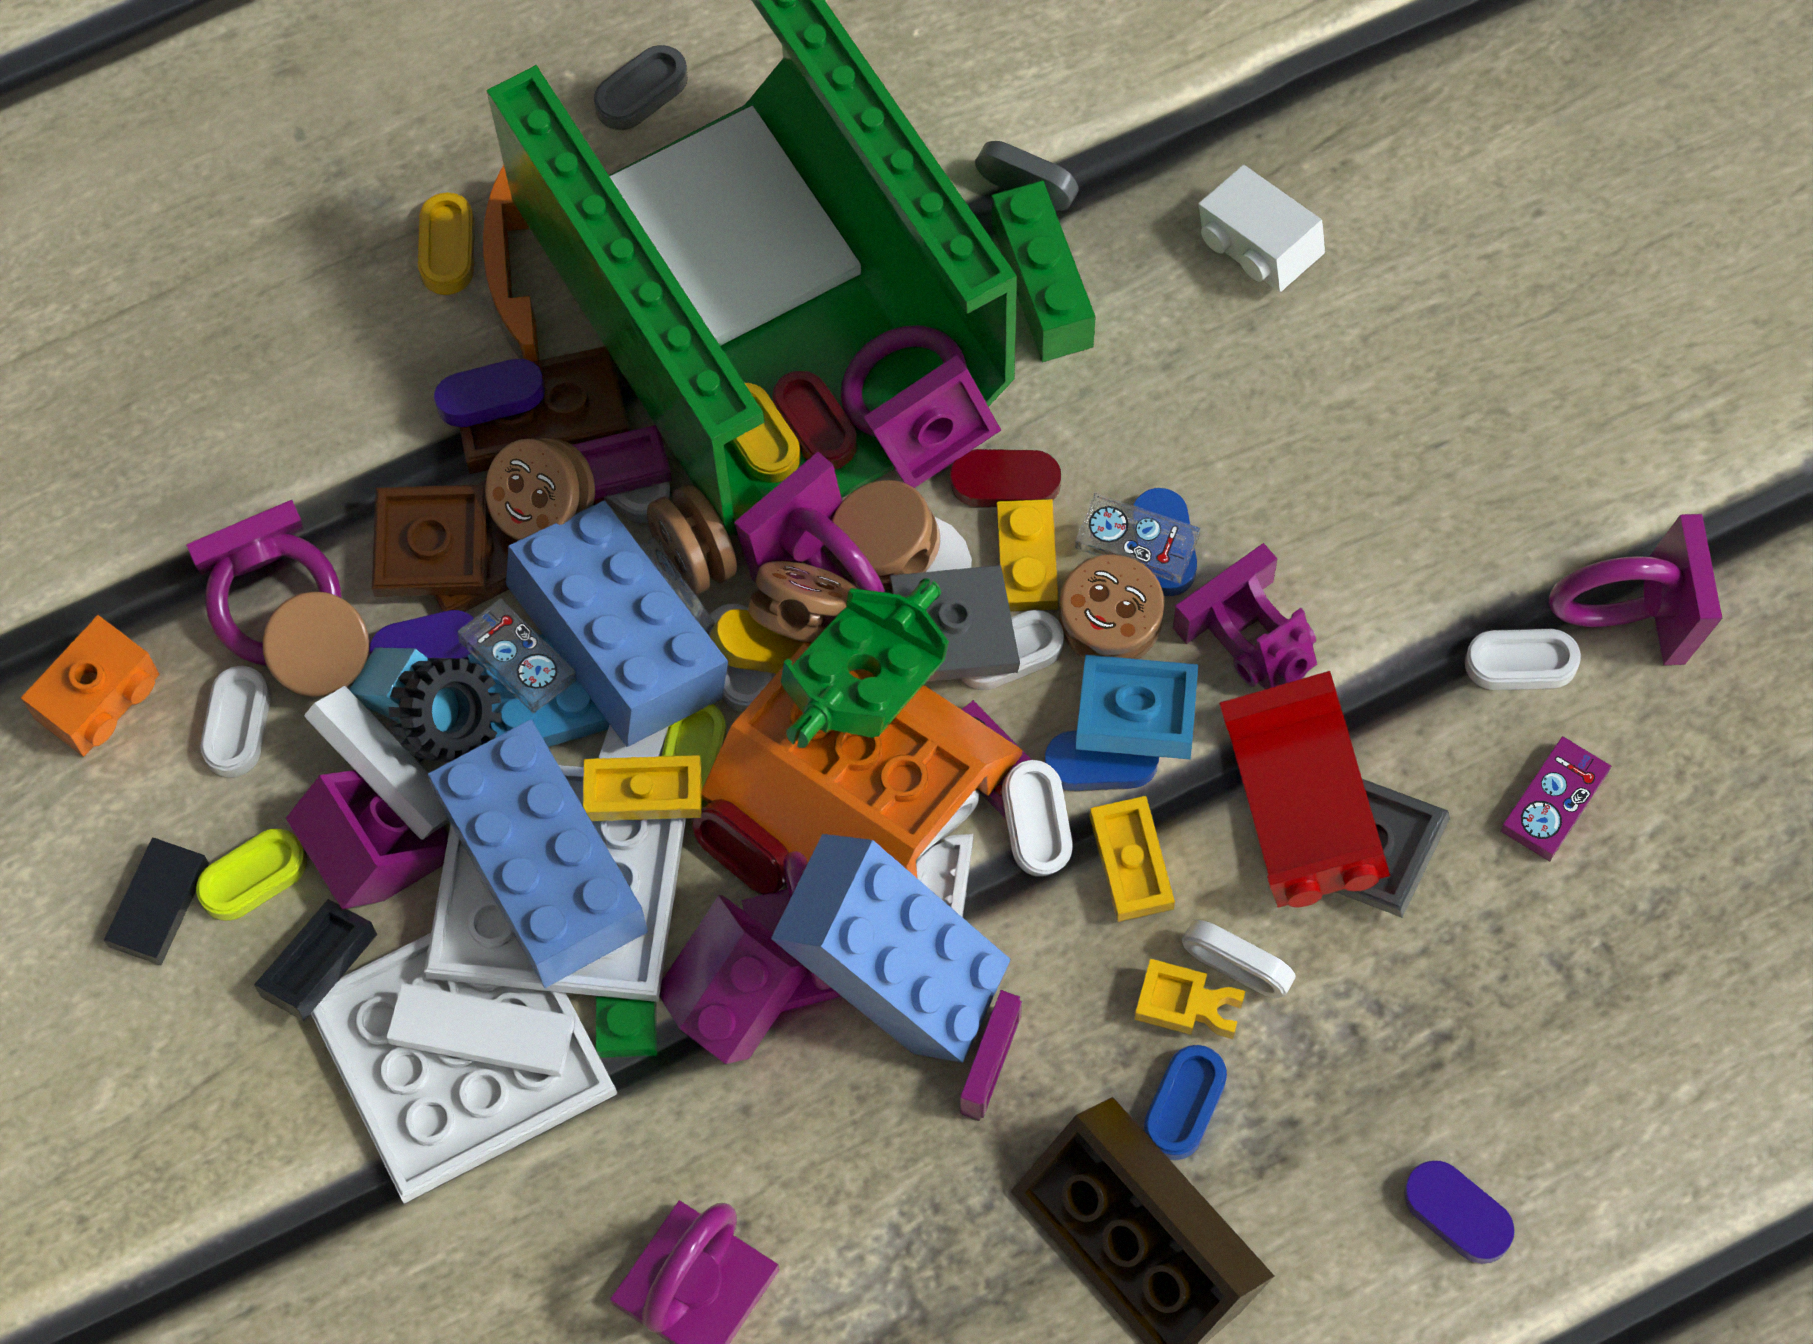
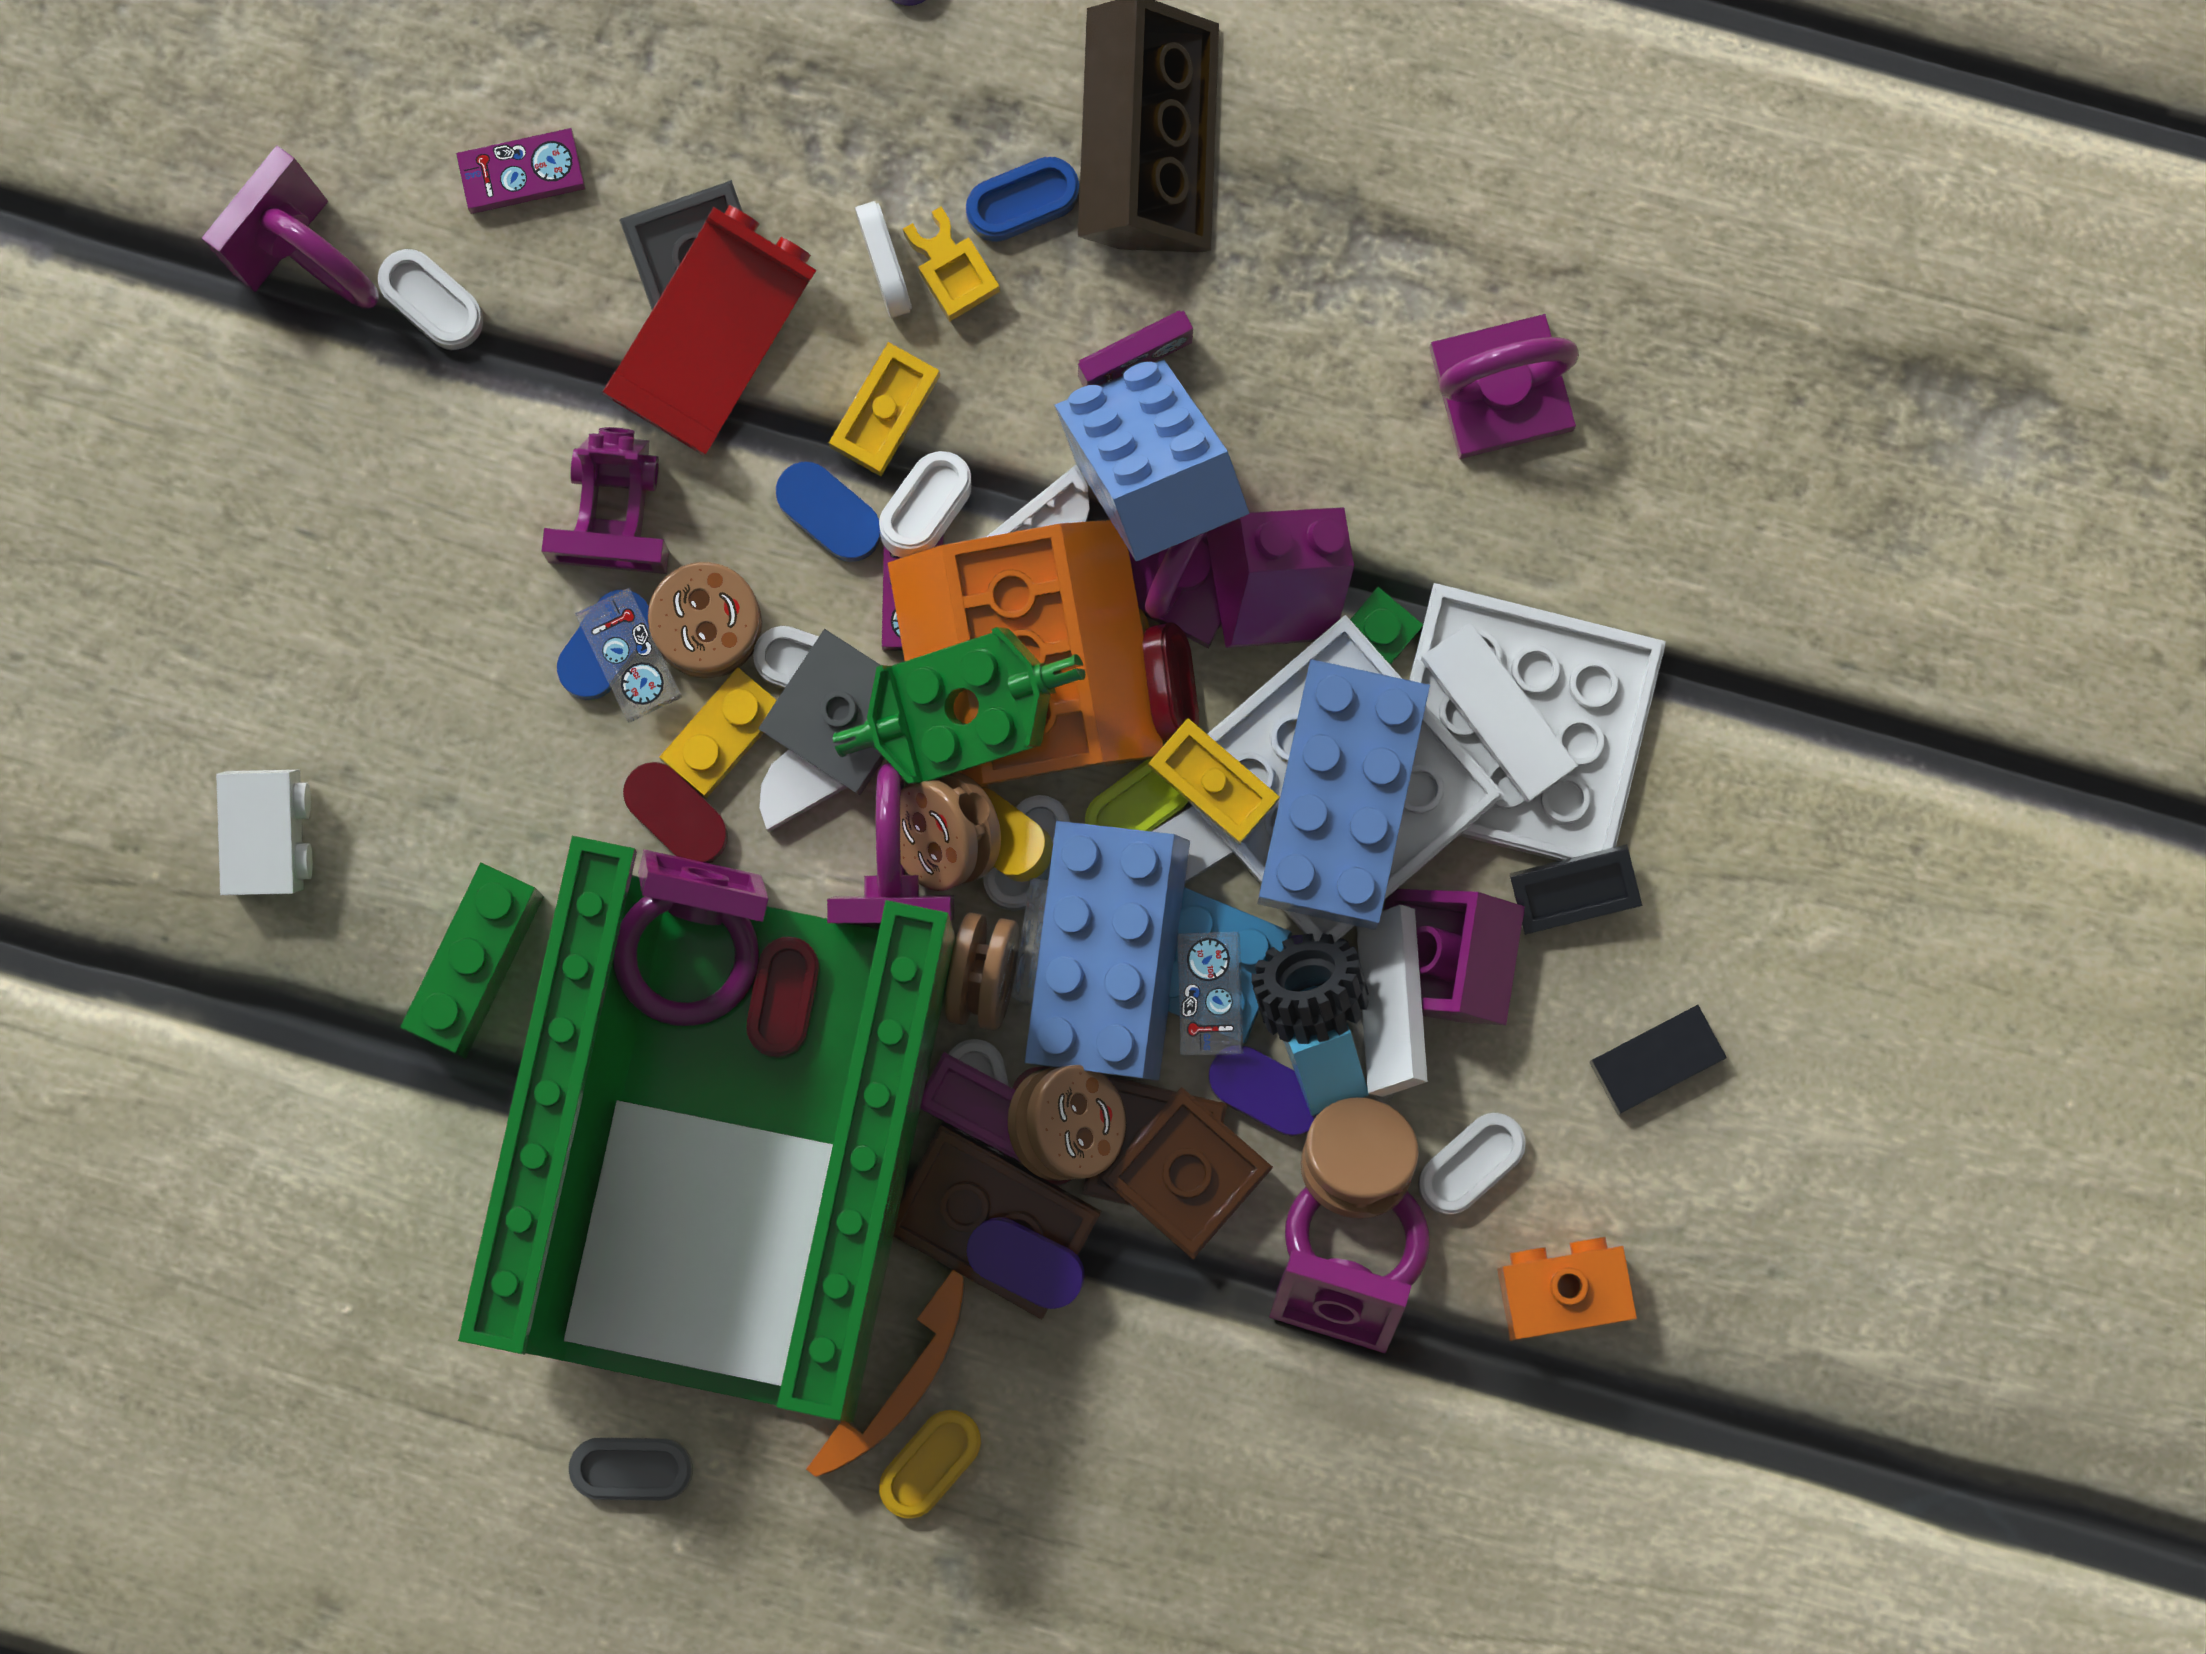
camera: 140 degrees left, 15 degrees up
(251, 874) = (1566, 1016): neon yellow tile -> none
(771, 448) = (833, 1026): yellow tile -> none
(890, 528) = (822, 840): medium nougat head -> none
(1015, 168) = (396, 1066): dark grey tile -> none
(1137, 707) = (766, 516): dark azure plate -> none

